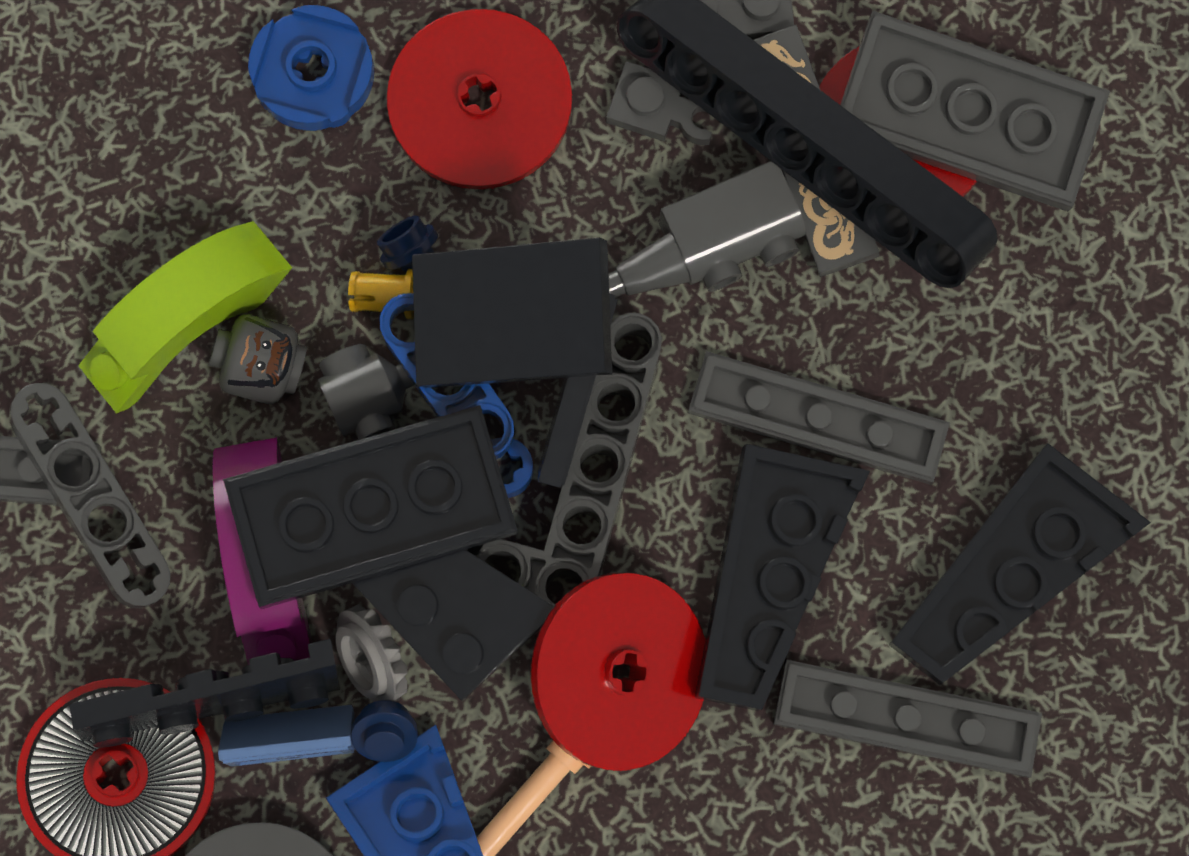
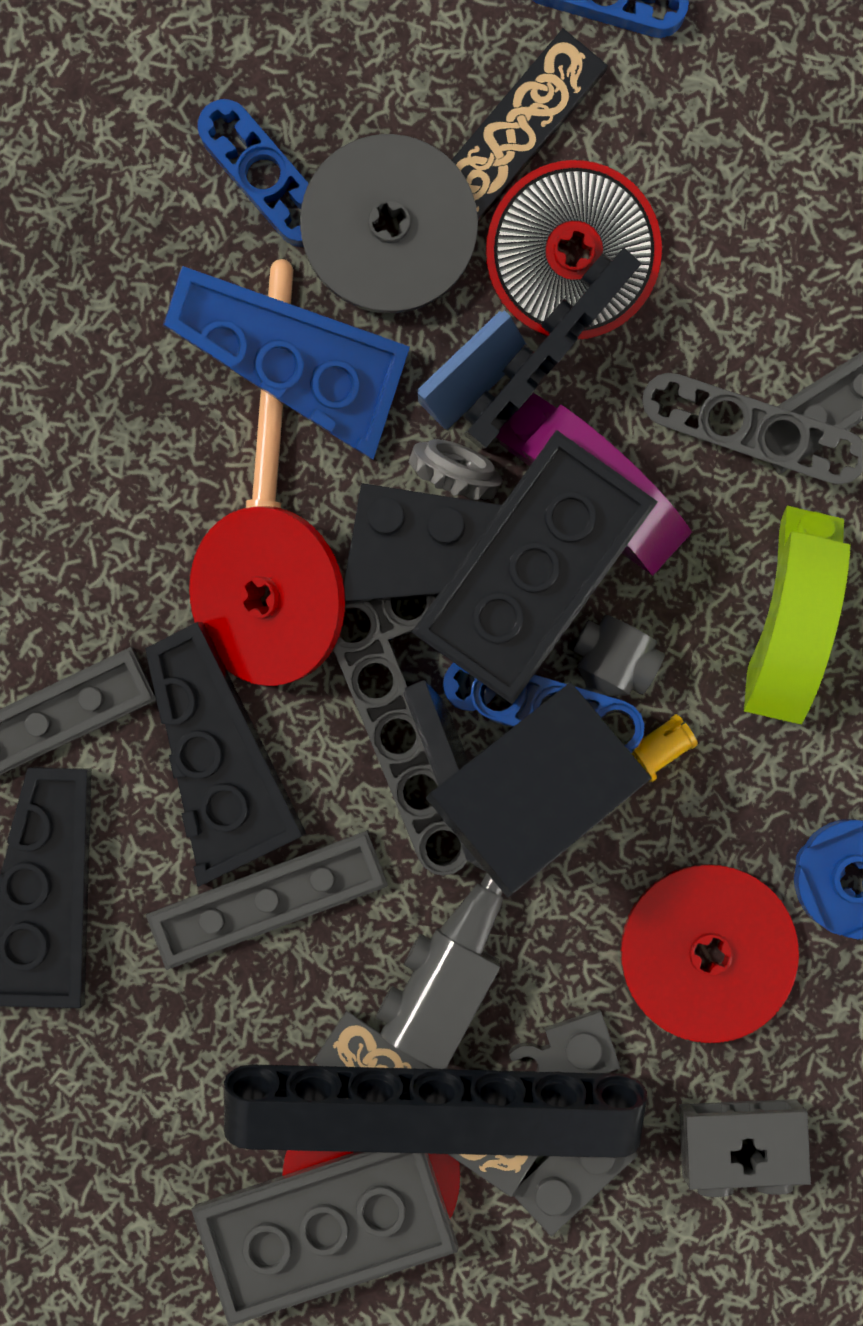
camera: 135 degrees right, 10 degrees up
(258, 359) = (713, 623): dark grey head -> none
(384, 731) = (403, 422): dark blue plate -> none
(405, 240) = (673, 796): dark blue plate -> none

